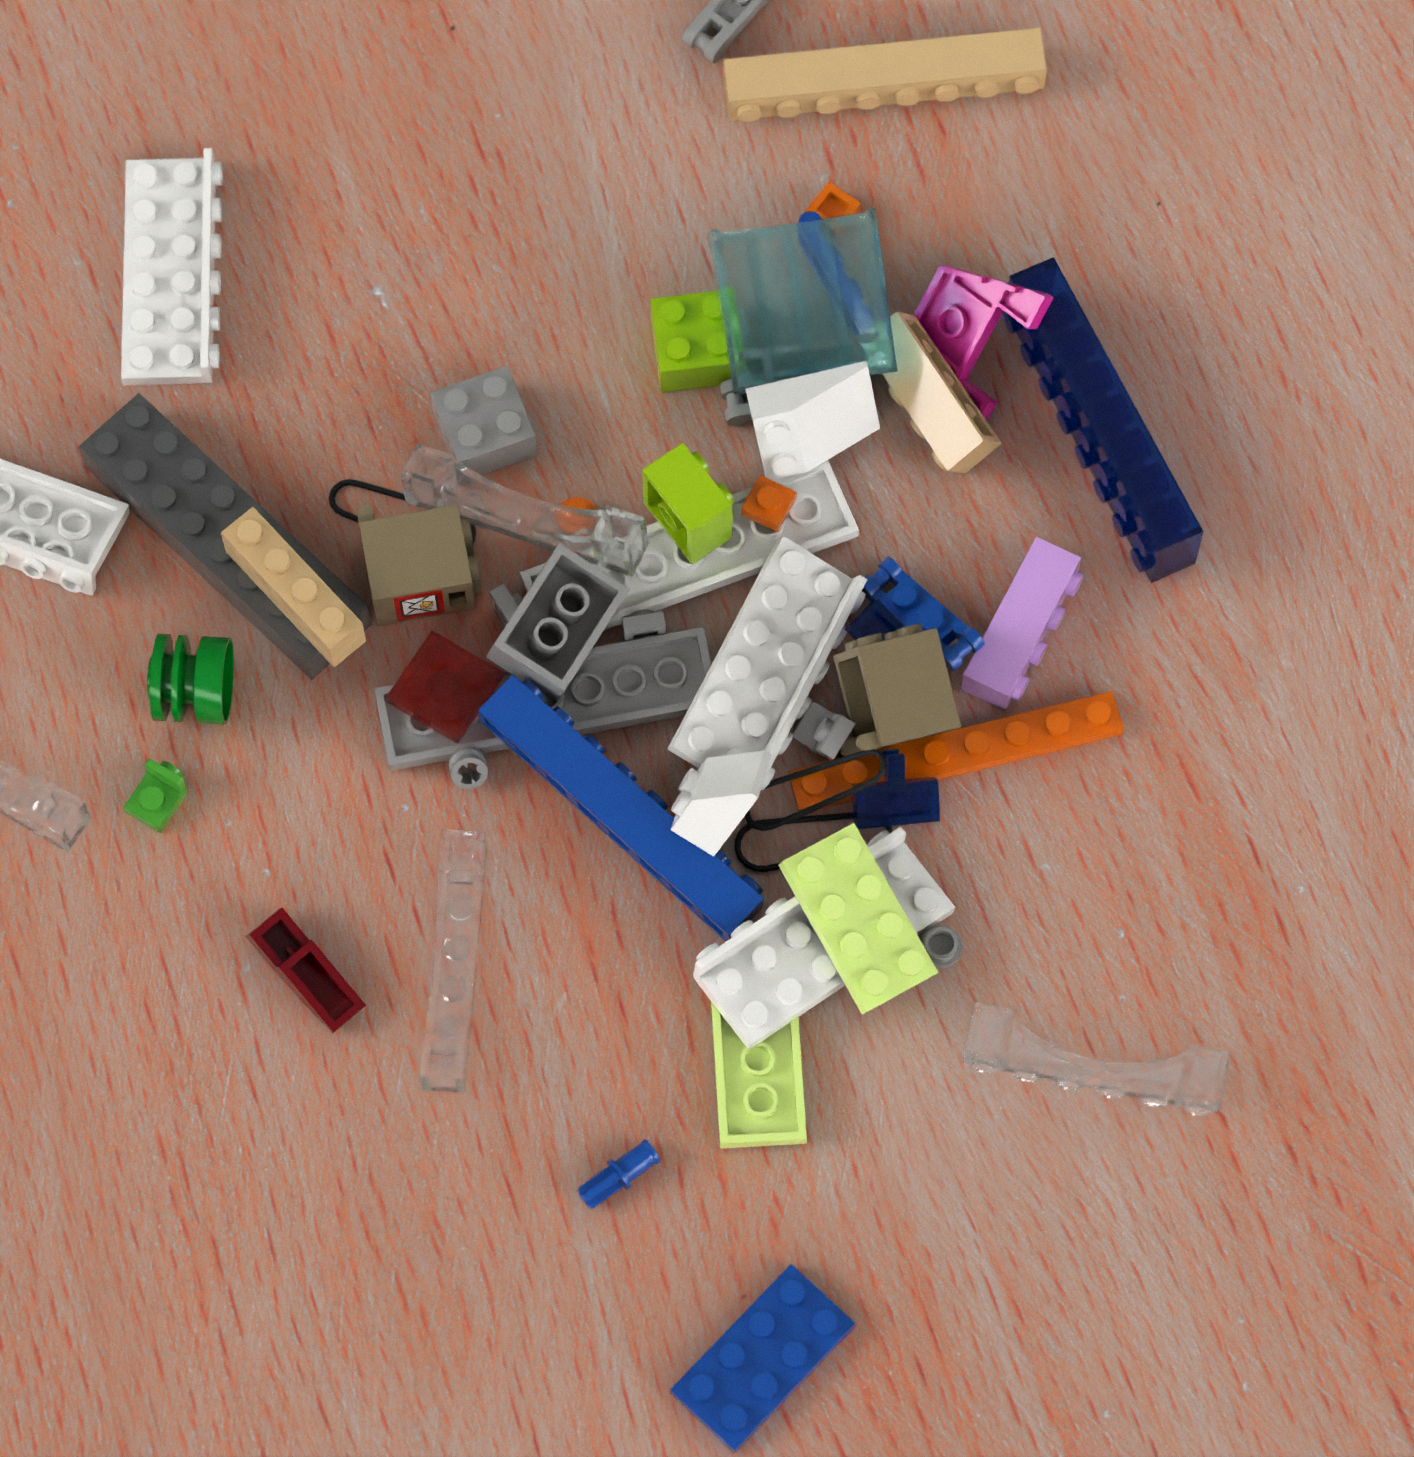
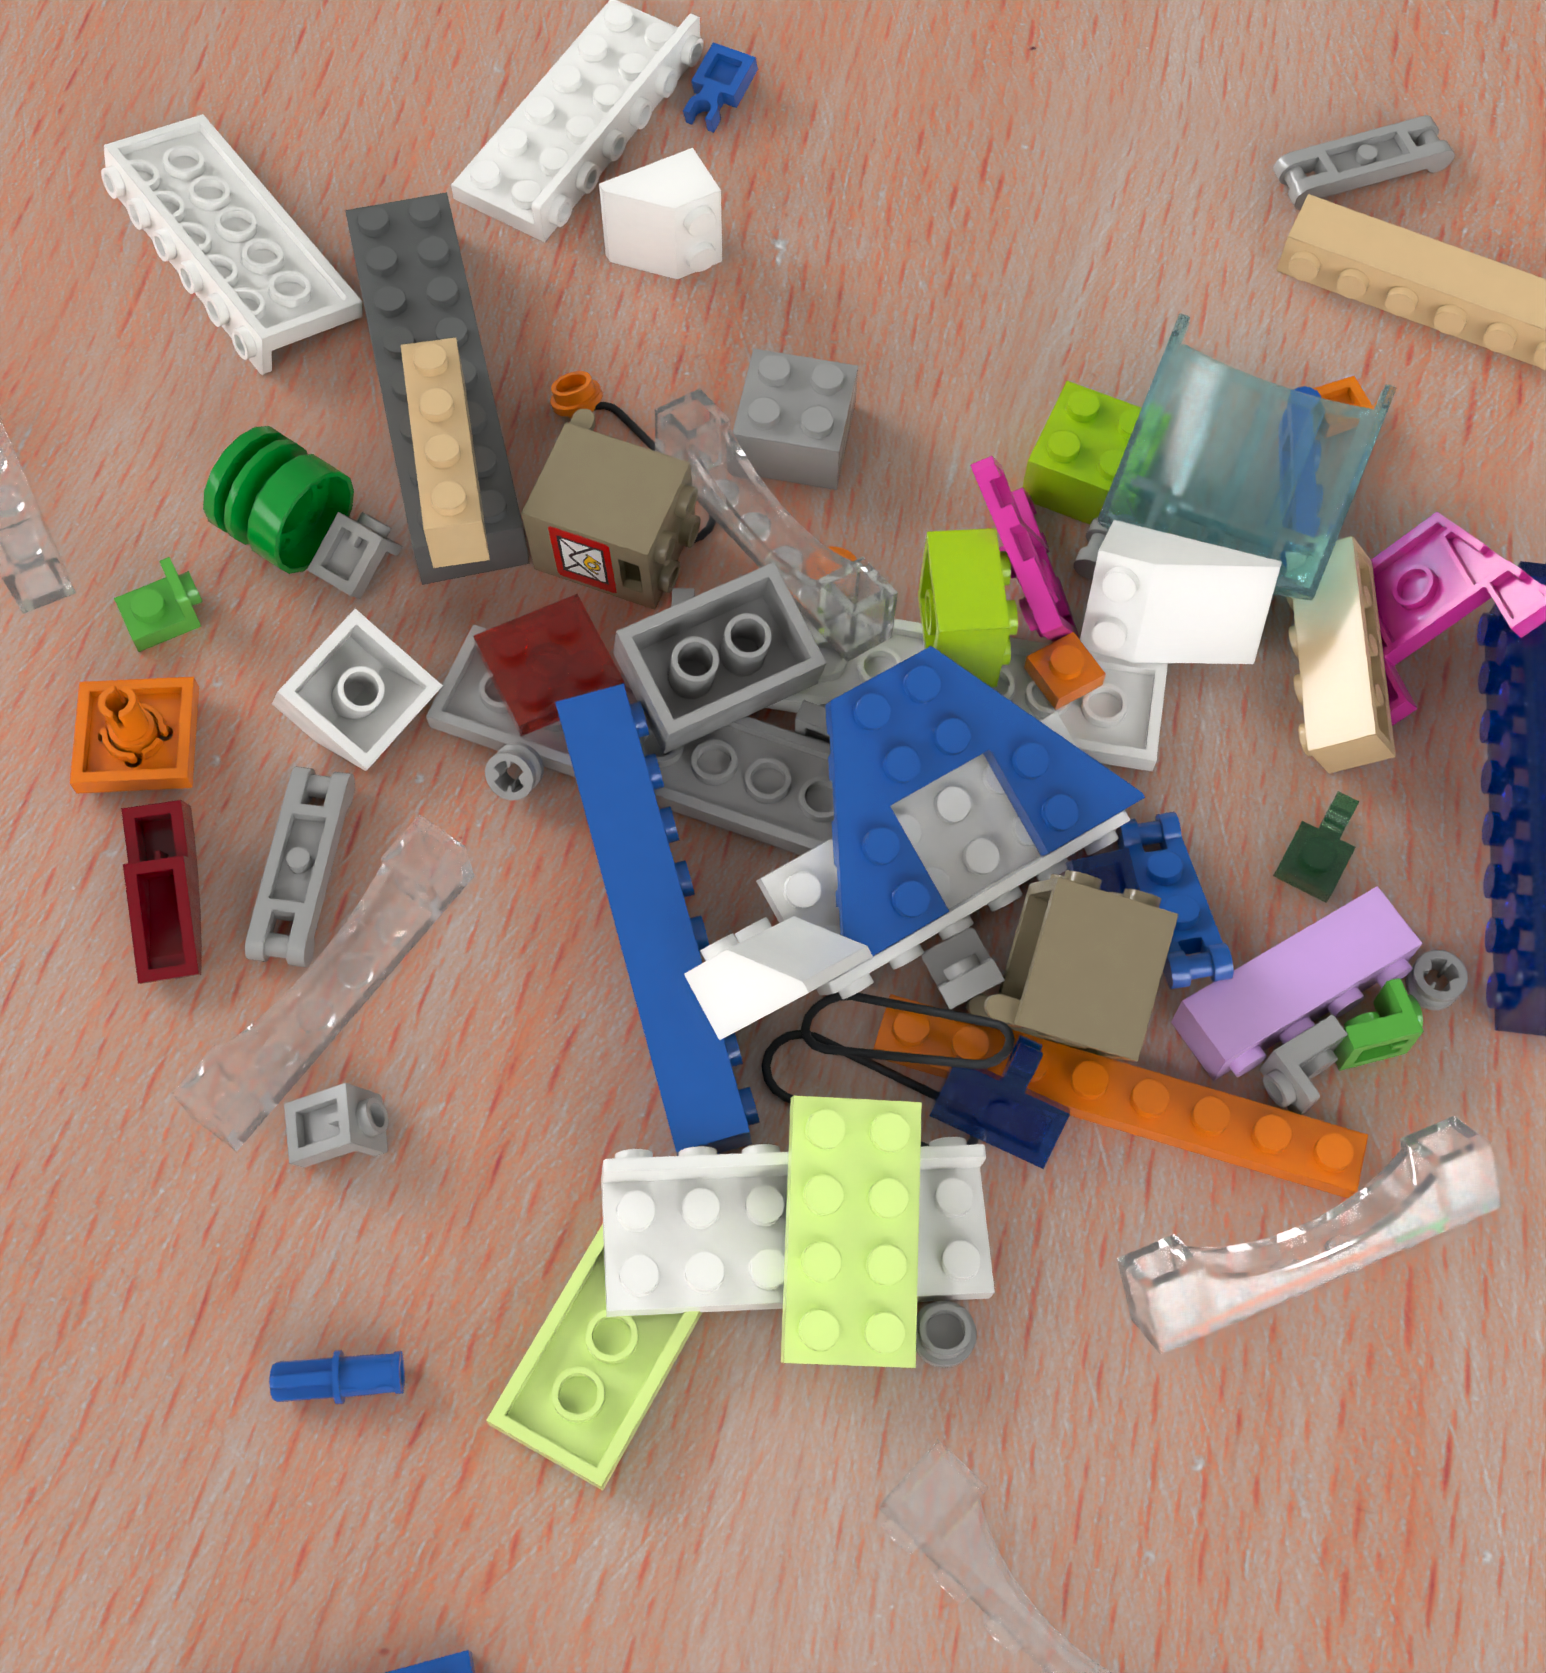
camera: 30 degrees right, 5 degrees down
(200, 873) = (134, 718): none -> orange plate
(253, 185) = (719, 81): none -> blue plate
(258, 685) = (352, 553): none -> light grey bracket
(301, 325) = (663, 217): none -> white slope
(323, 489) = (575, 392): none -> orange plate
(334, 776) = (356, 692): none -> white slope
(376, 904) = (299, 866): none -> light grey plate
(514, 1041) = (335, 1124): none -> light grey bracket
(691, 430) = (1027, 548): none -> dark pink wing
(707, 606) = (913, 730): none -> blue wing
(988, 533) = (1317, 854): none -> clear green plate
(1047, 675) = (1297, 1061): none -> light grey bracket
(1086, 627) = (1384, 1032): none -> bright green bracket
(1102, 559) = (1447, 965): none -> light grey bush
(1161, 703) = (1431, 1185): none -> clear arch

